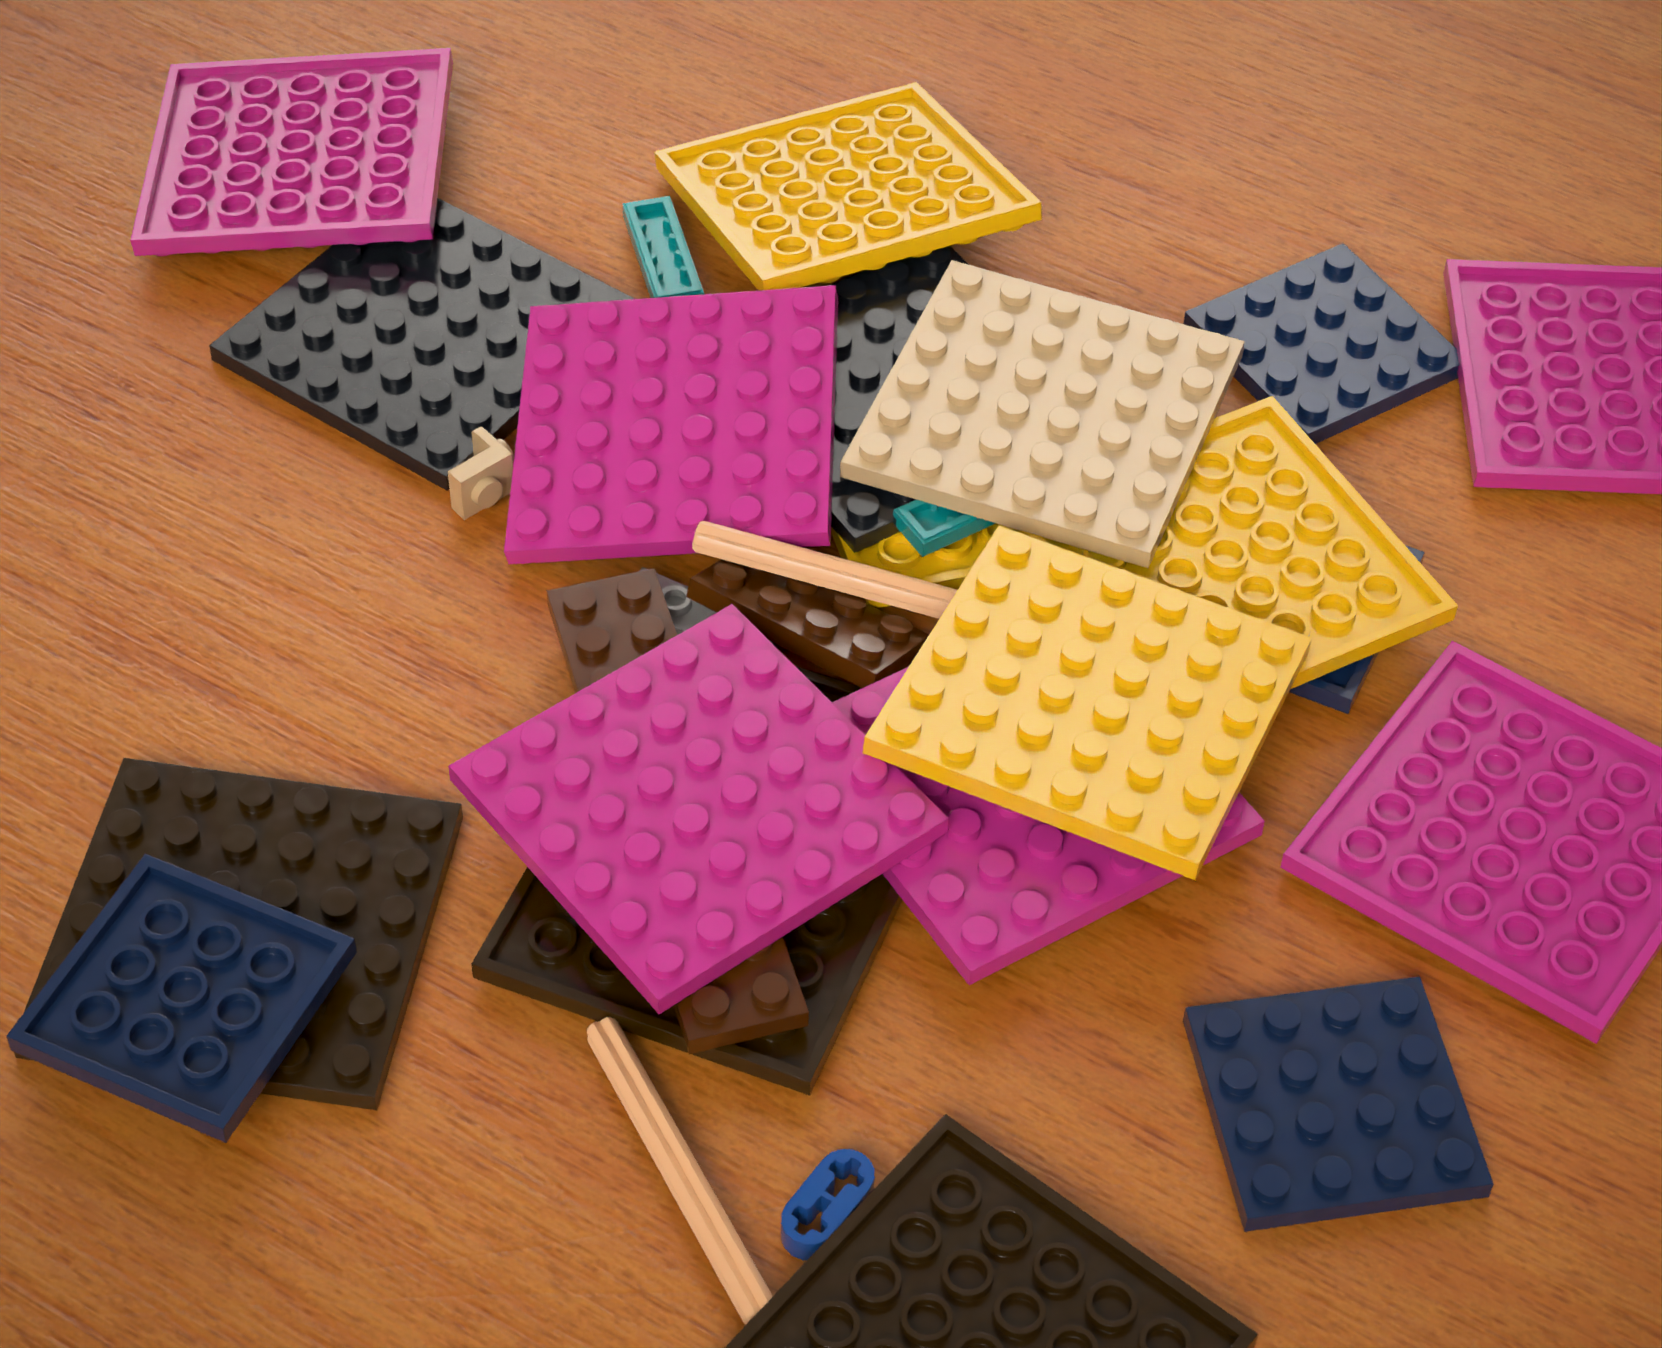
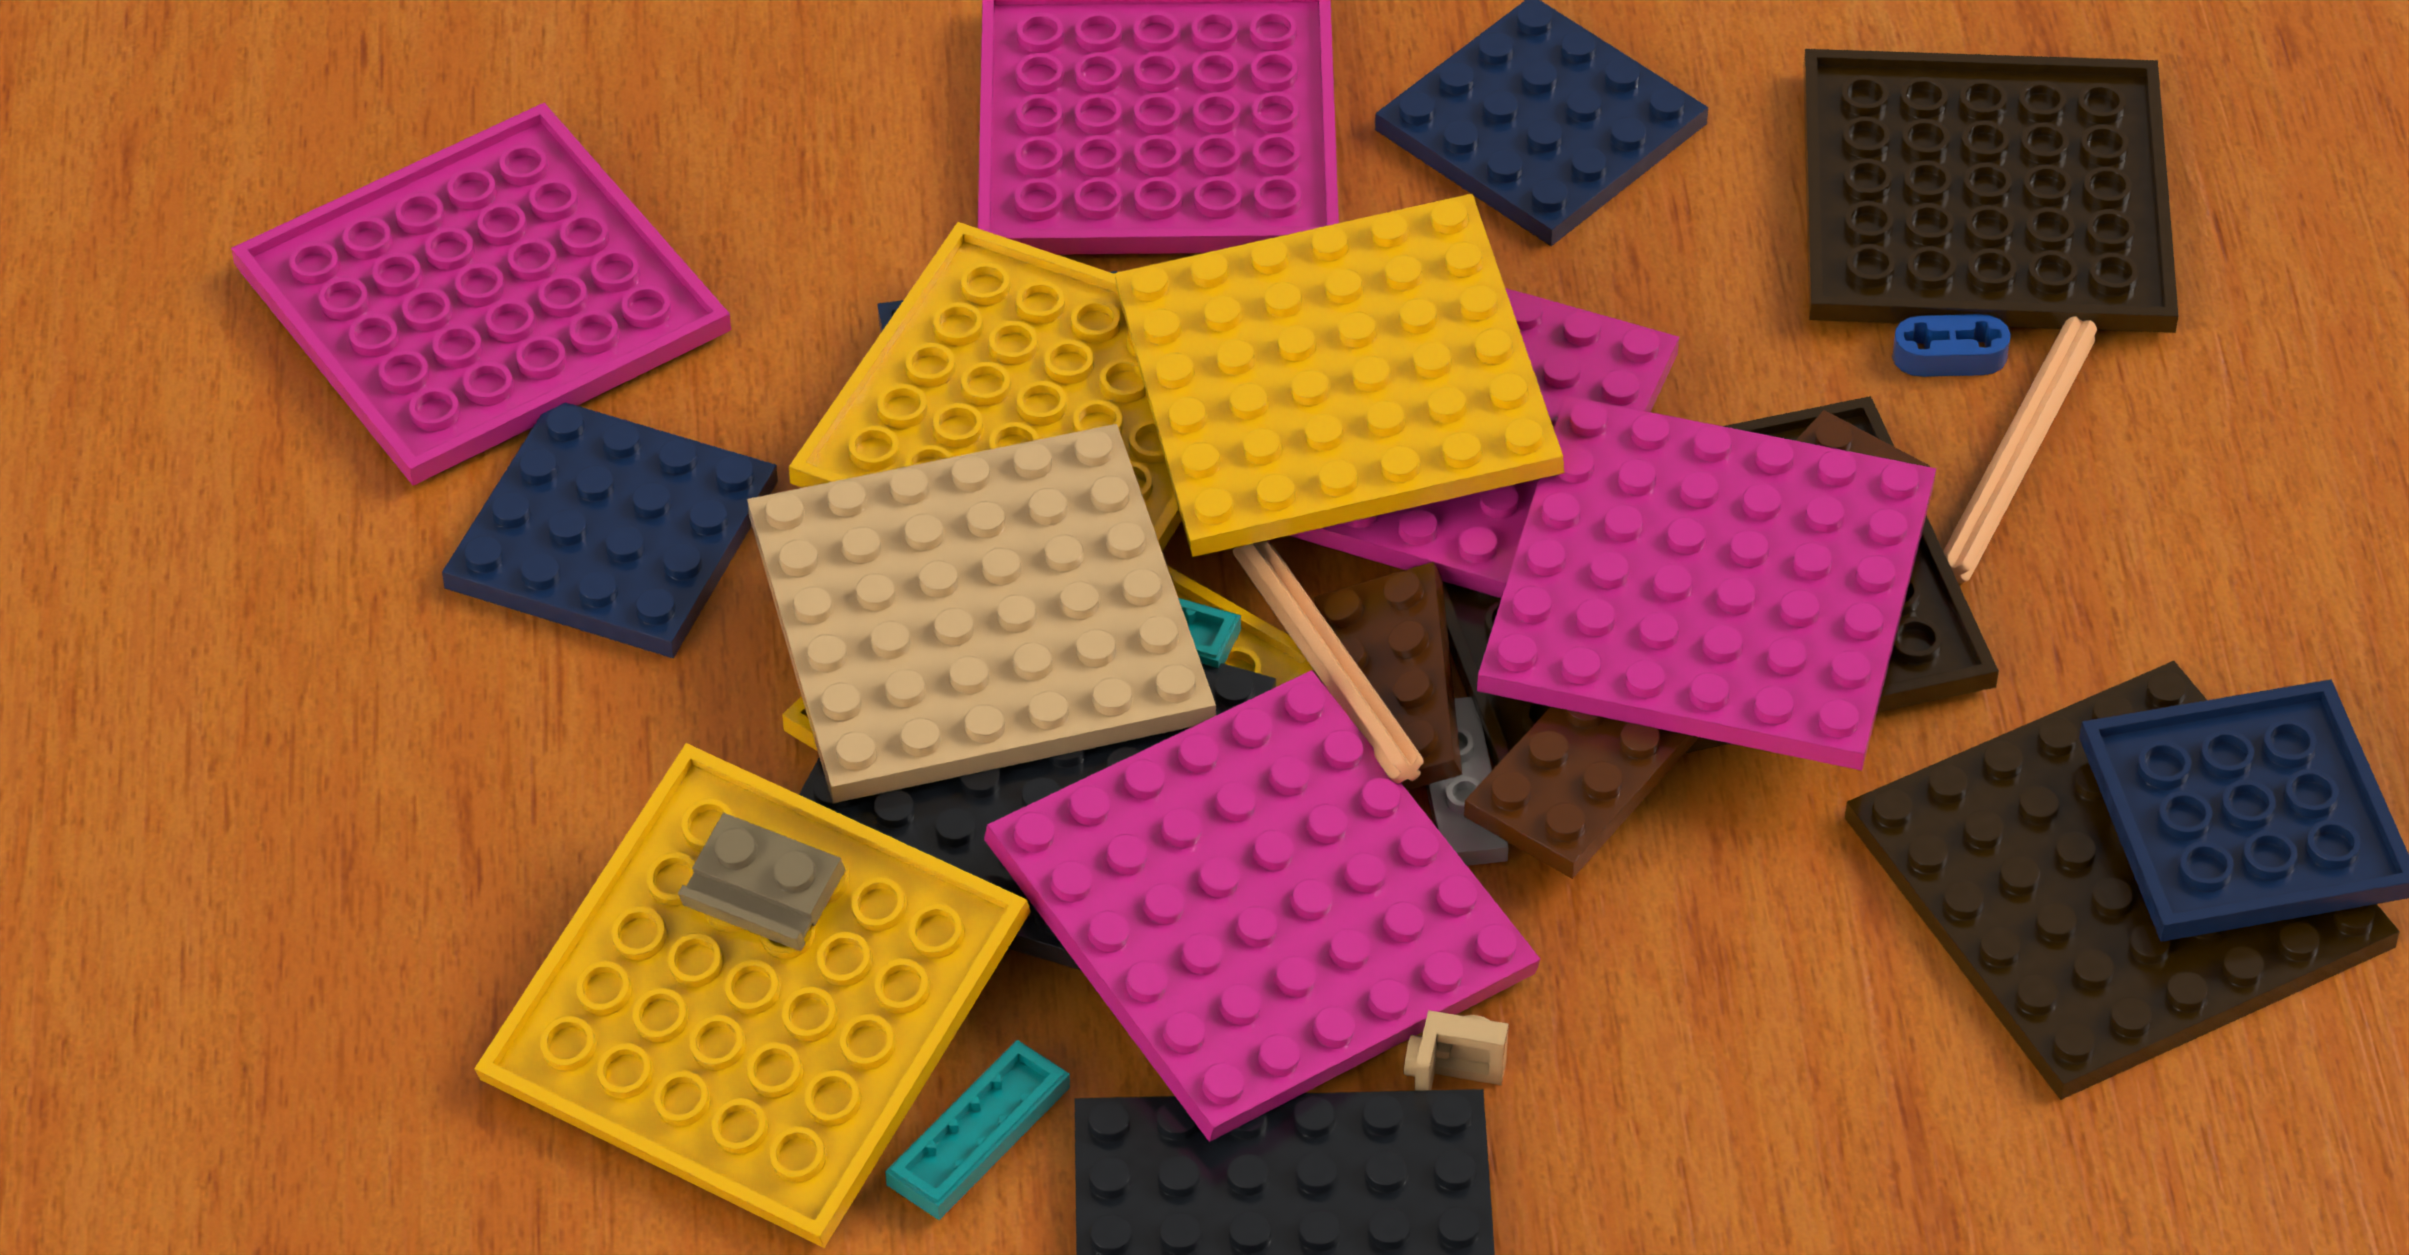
camera: 125 degrees left, 0 degrees up
(900, 189) = (762, 881): none -> dark tan plate

